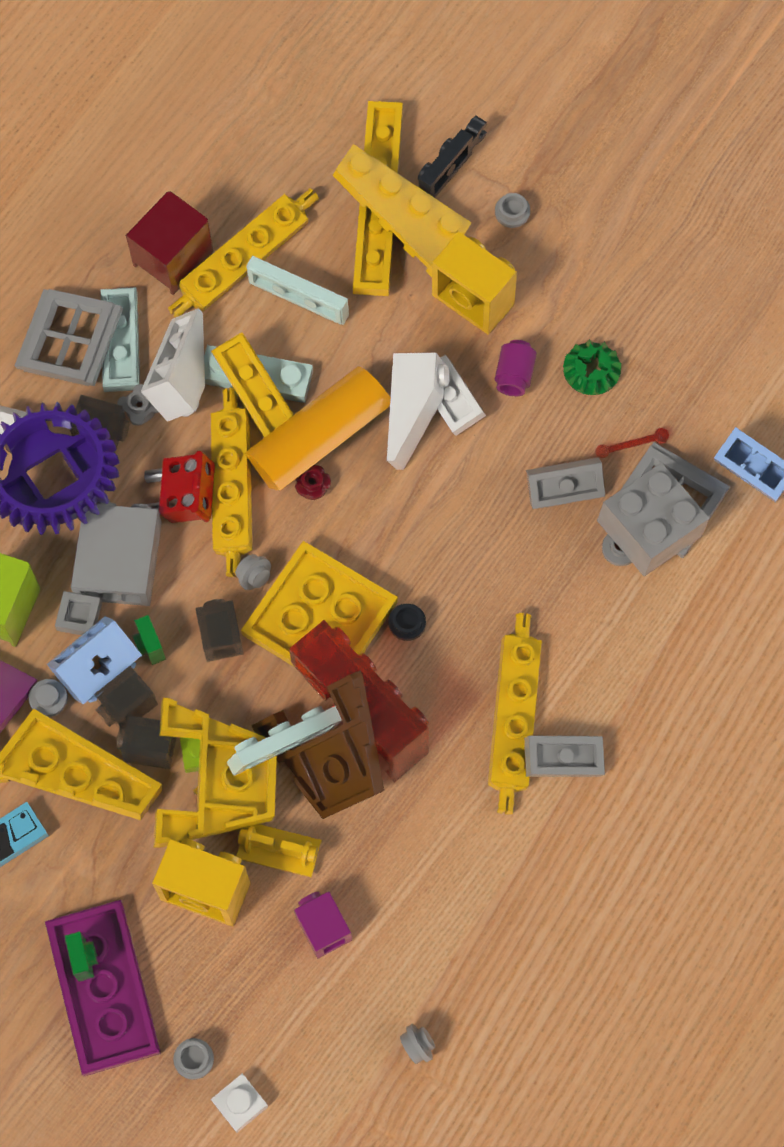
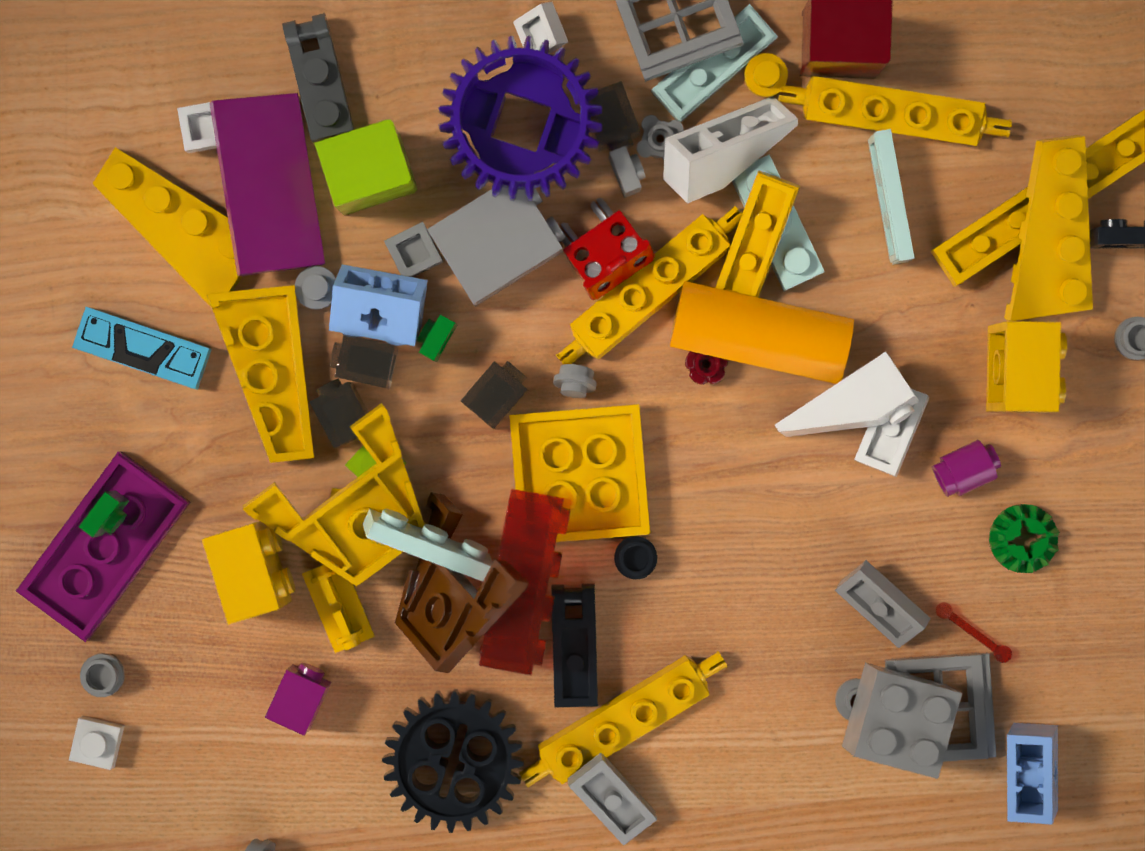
camera: 50 degrees right, 20 degrees up
(142, 439) = (627, 171): none -> light grey plate
(154, 312) = (765, 75): none -> yellow plate
(441, 707) = (574, 647): none -> black plate
(481, 828) = (417, 749): none -> black gear

